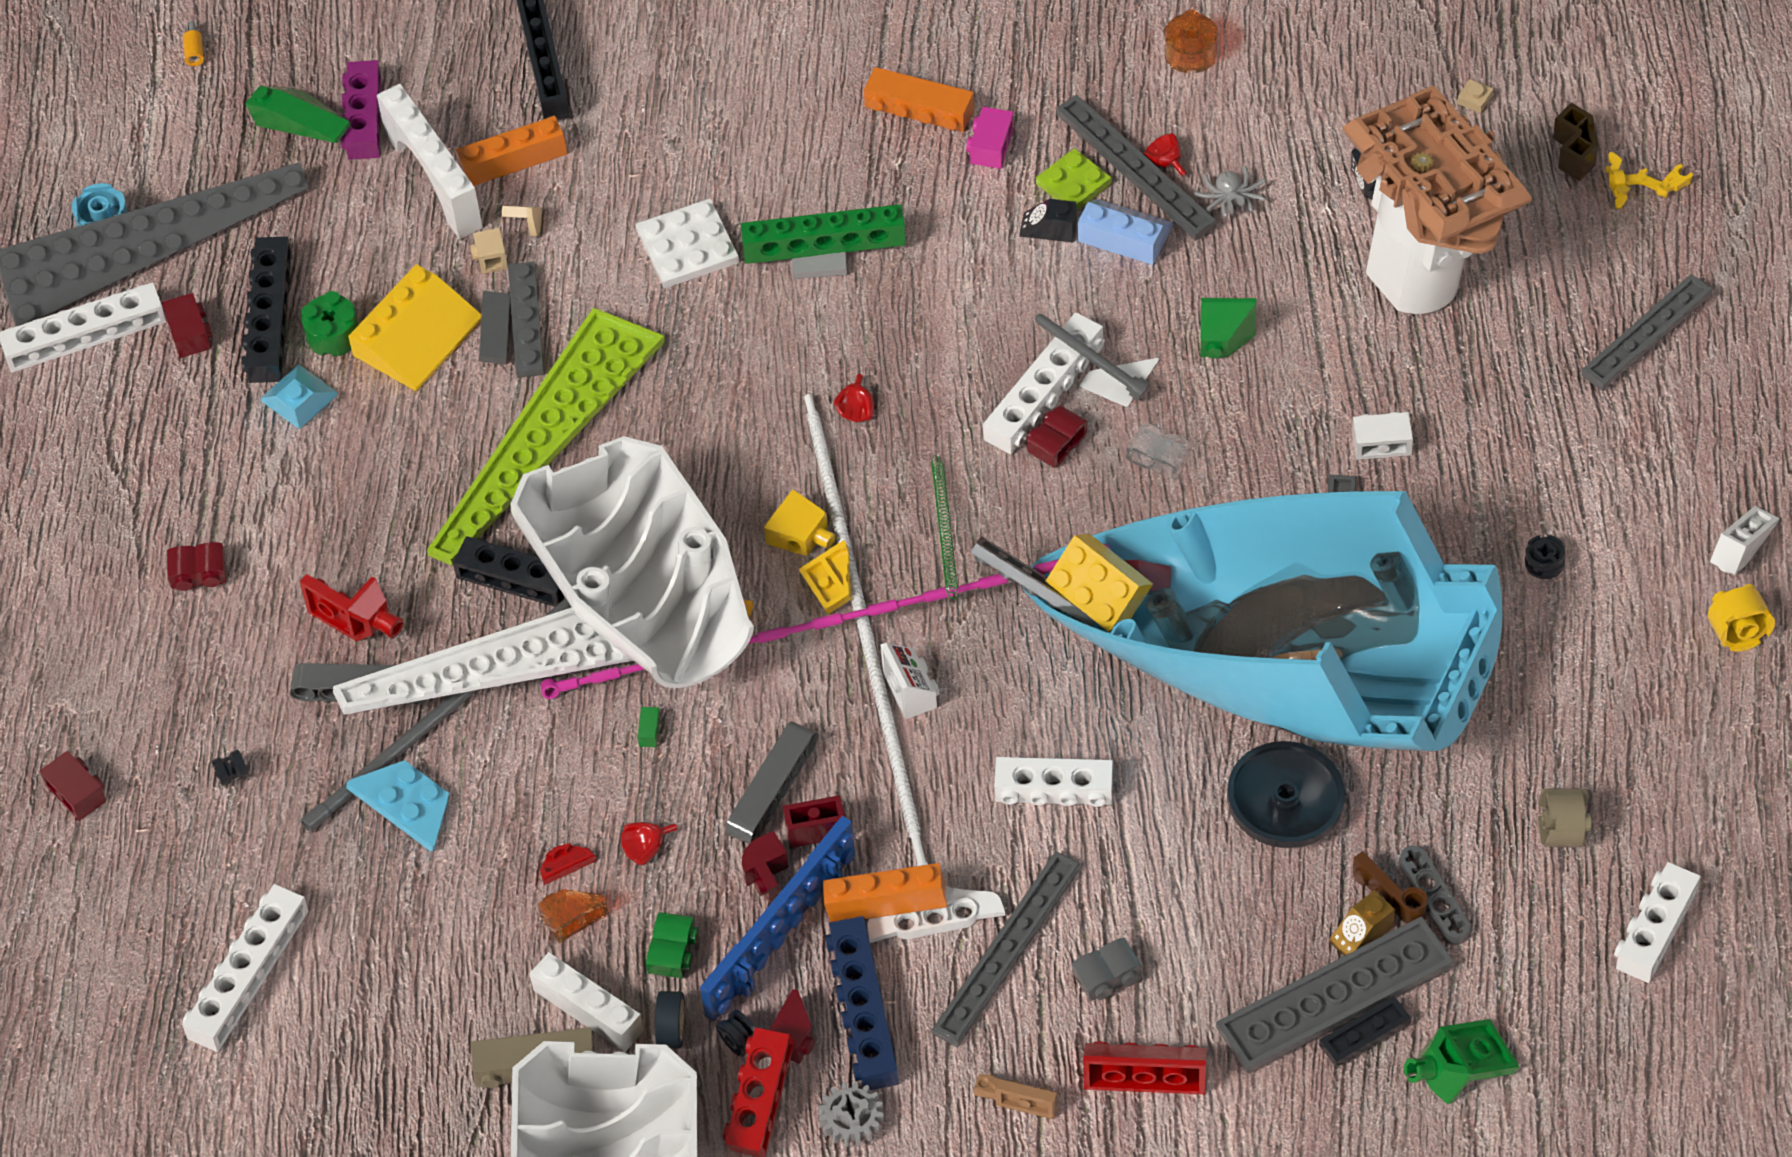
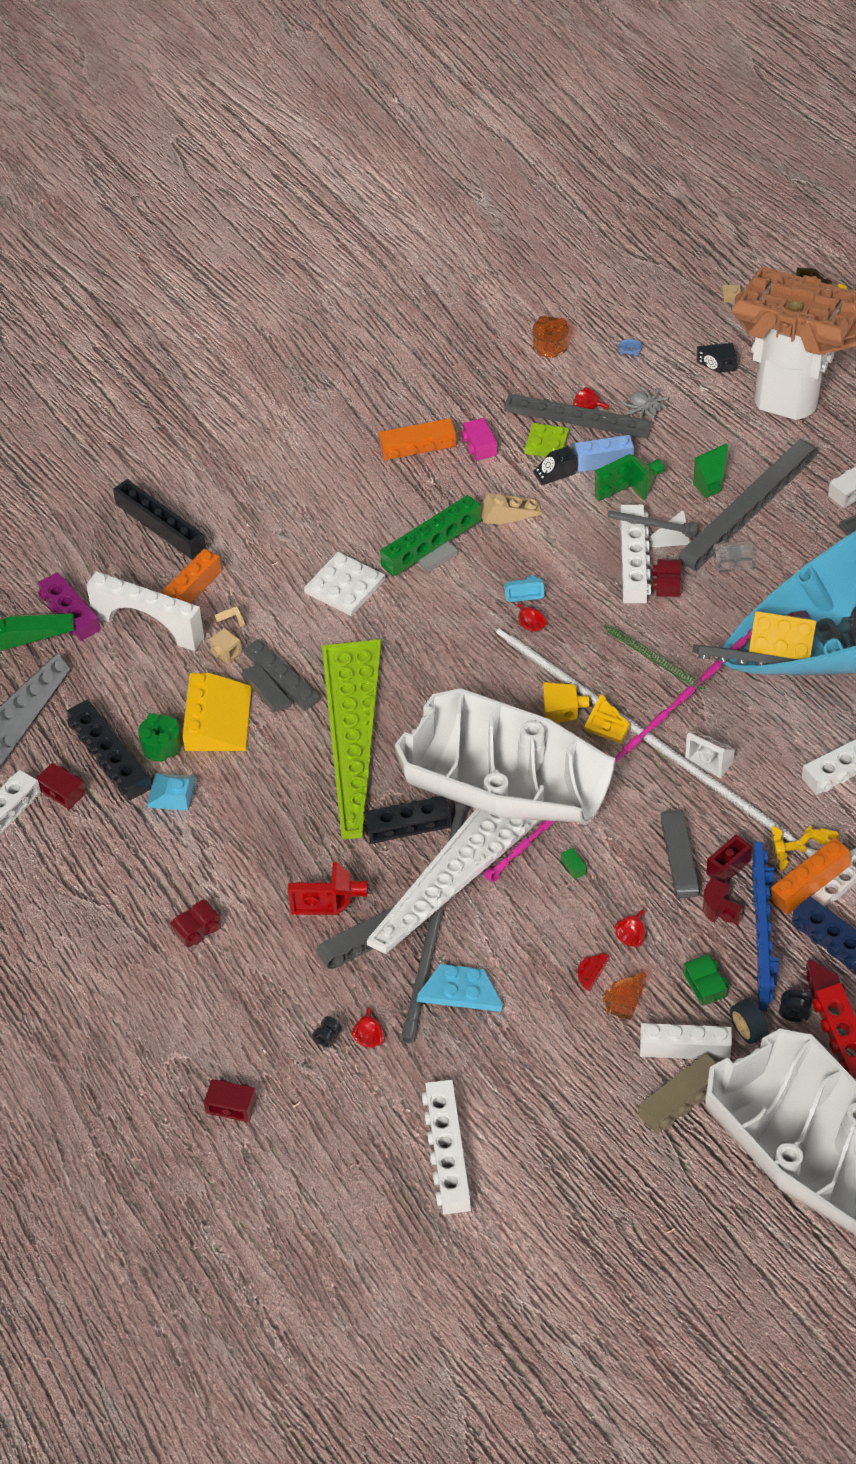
camera: 35 degrees left, 5 degrees down
(272, 791) = (368, 1031): none -> red piece
(878, 361) = (523, 590): none -> medium azure piece
(890, 840) = (821, 836): none -> yellow piece
(948, 247) = (505, 509): none -> tan slope
(1114, 273) = (626, 473): none -> green plate
(1240, 391) = (748, 504): none -> dark grey beam
(1284, 99) = (630, 343): none -> medium blue piece

